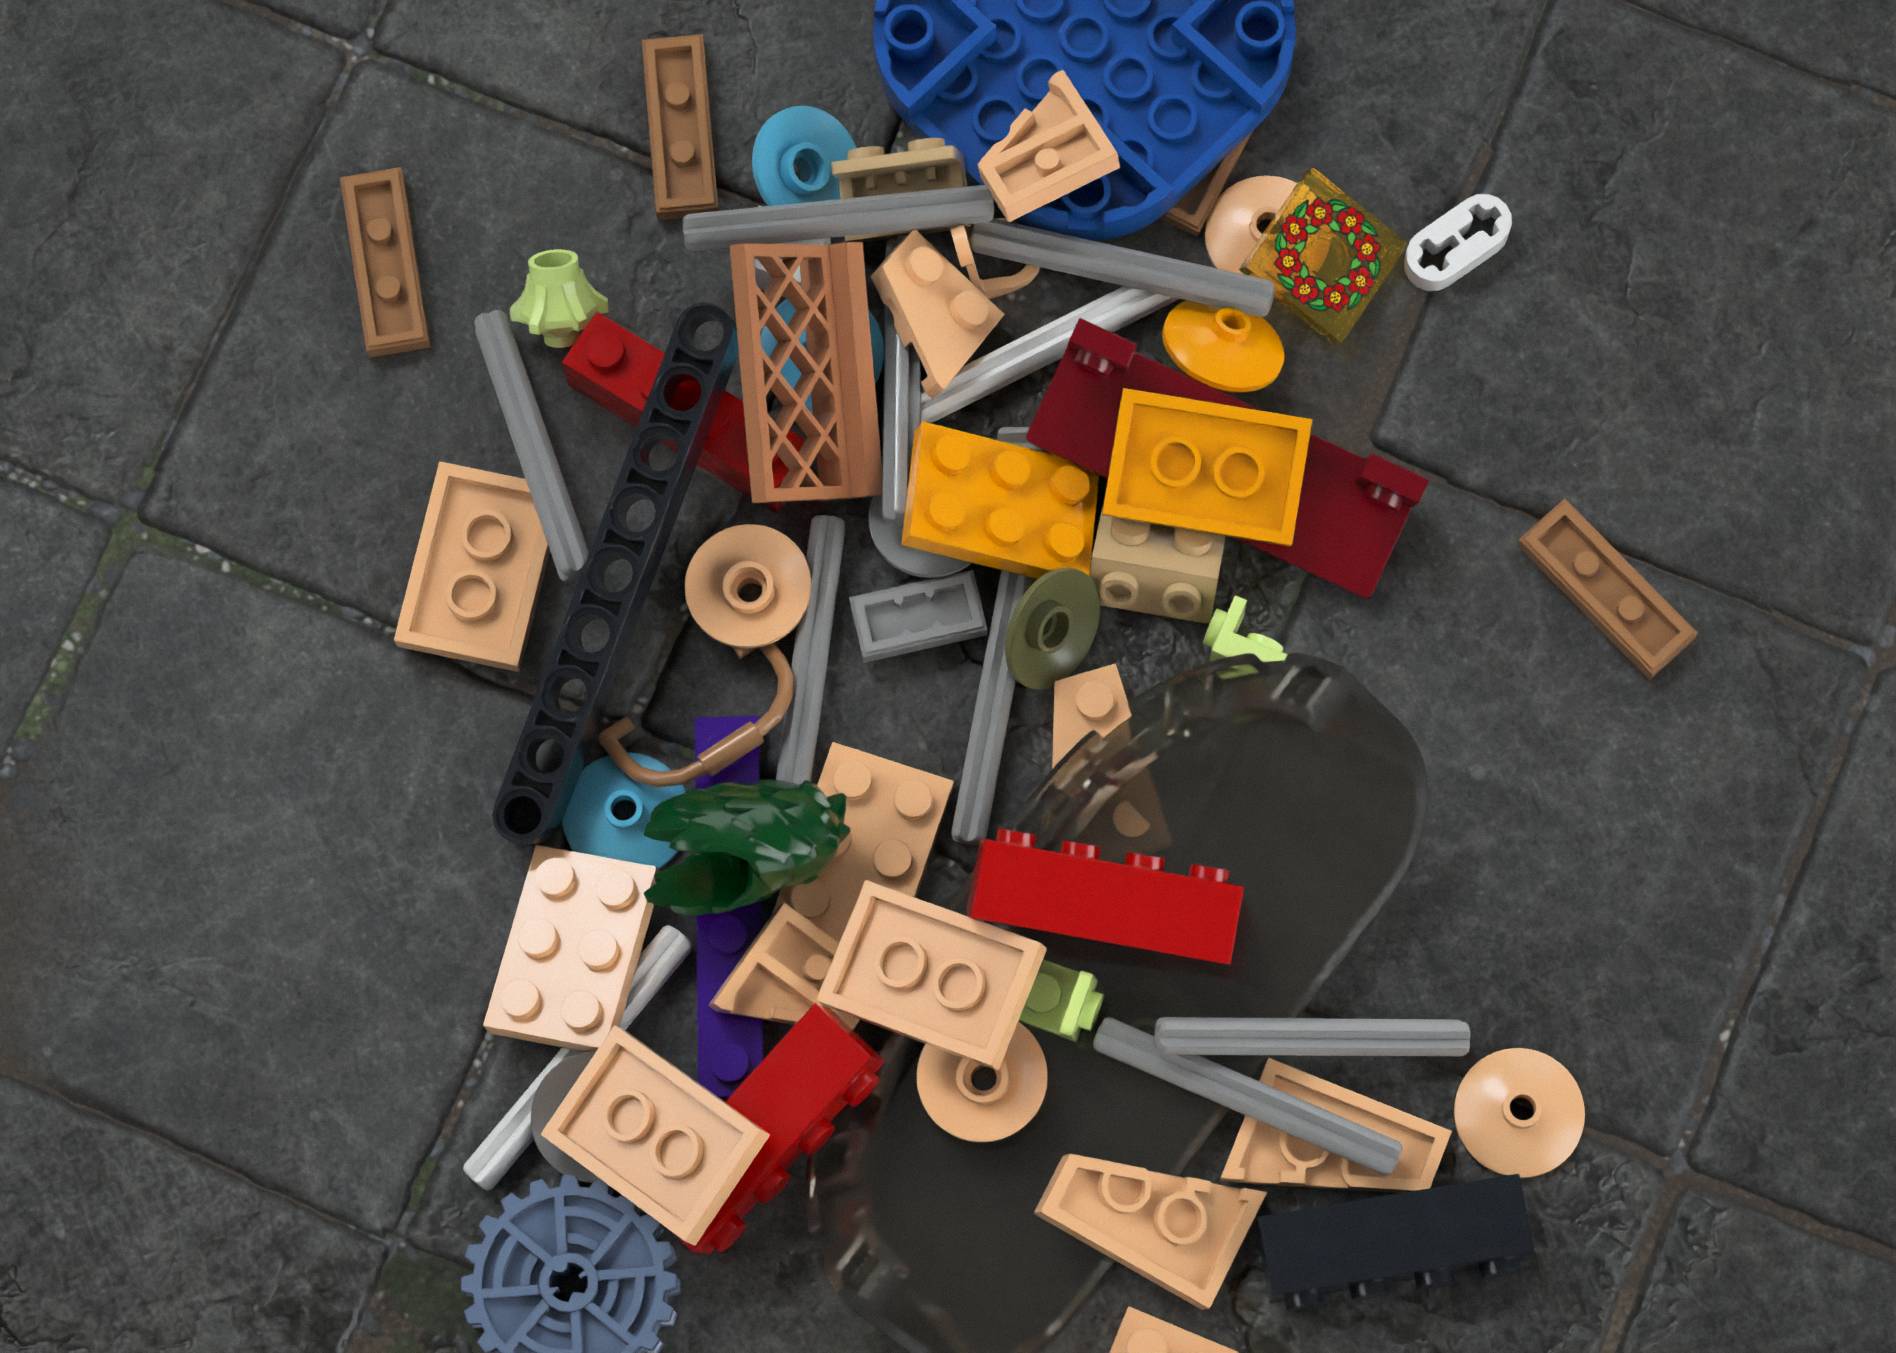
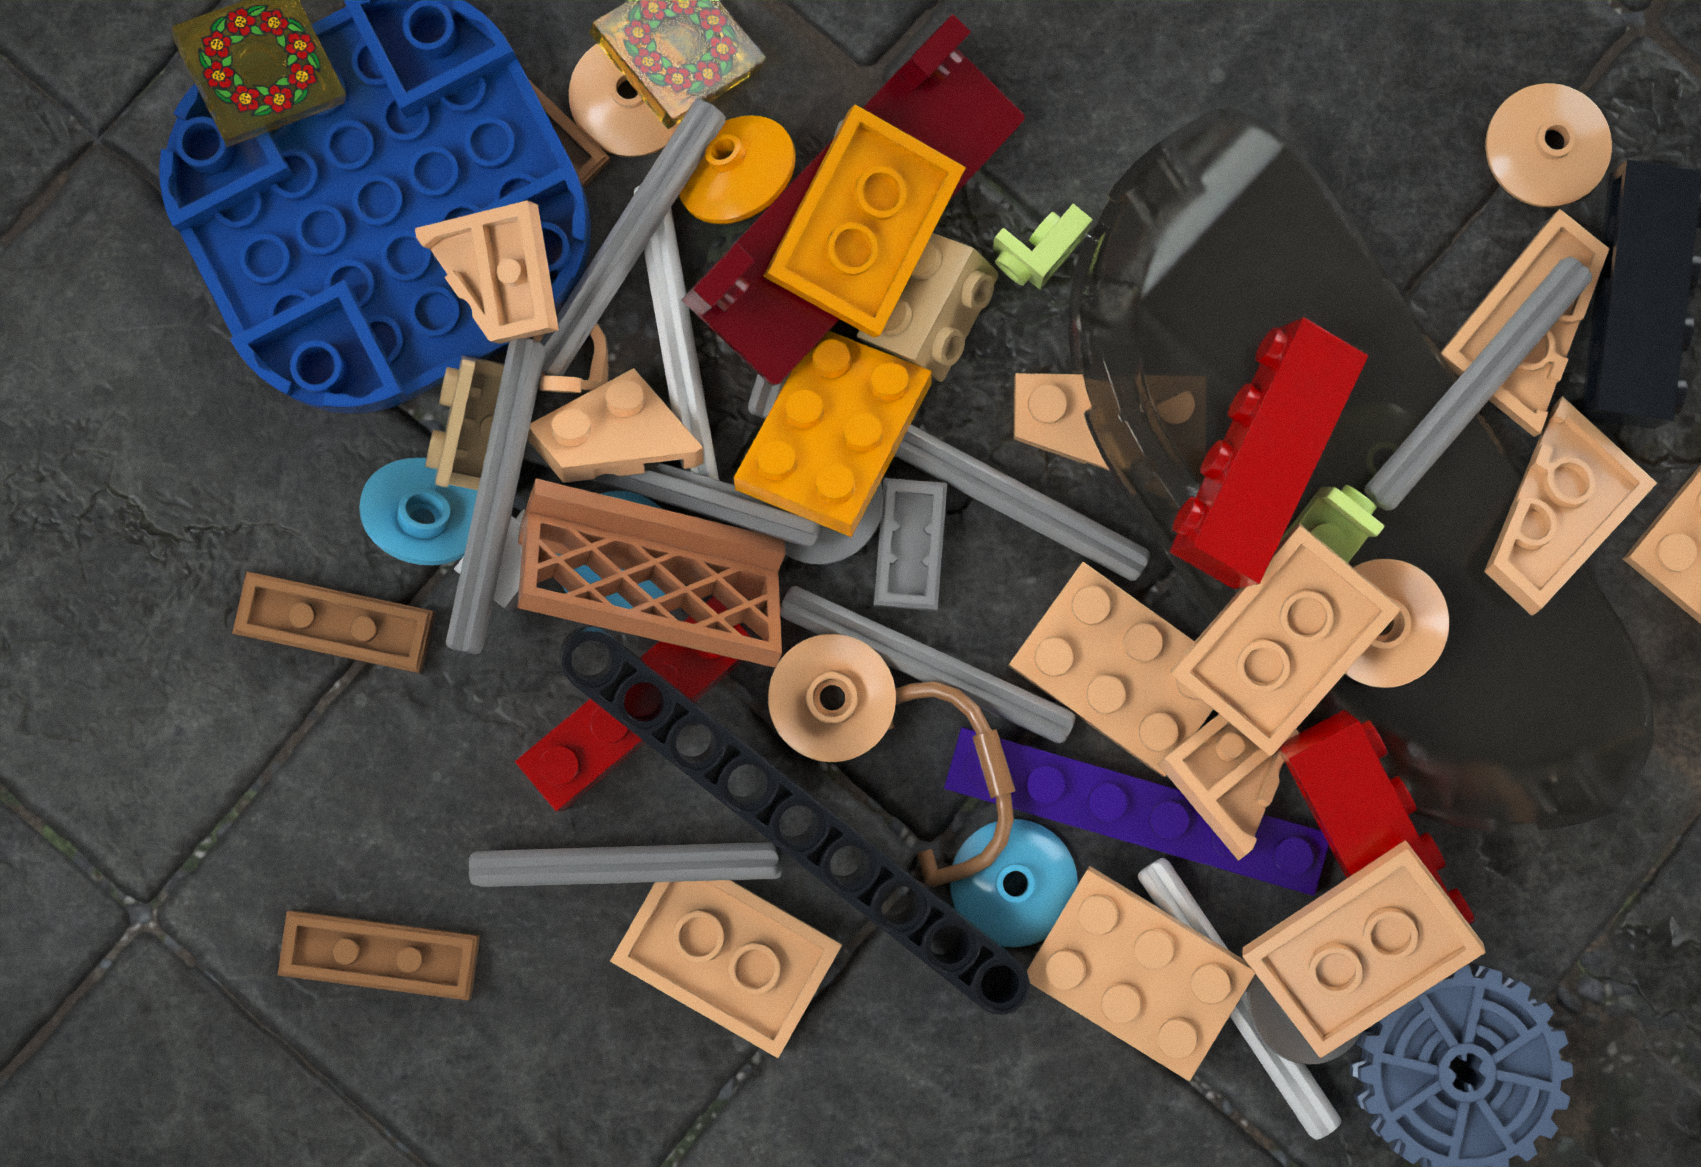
camera: 75 degrees left, 10 degrees up
(557, 298) = (481, 796): yellowish green rock -> none
(743, 843) = (1106, 780): dark green head -> none
(1052, 628) = (969, 421): olive dish -> none
(1311, 1036) = (1439, 307): light grey axle -> none

